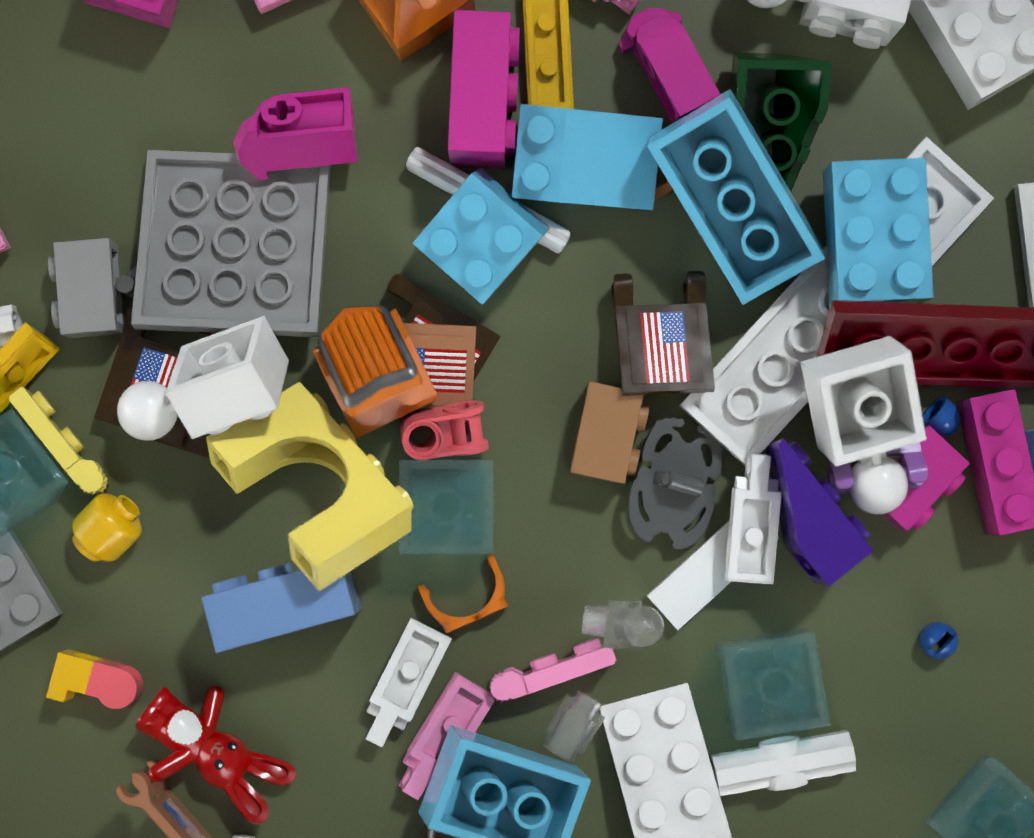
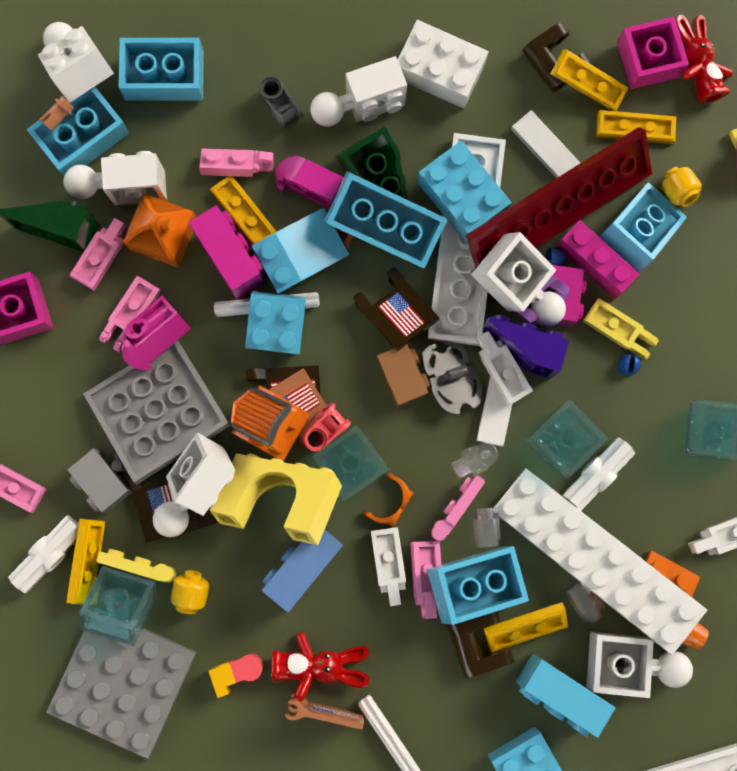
camera: 35 degrees left, 5 degrees down
(305, 69) = (135, 301): none -> bright pink hinge
(961, 579) = (619, 328): none -> light yellow hinge

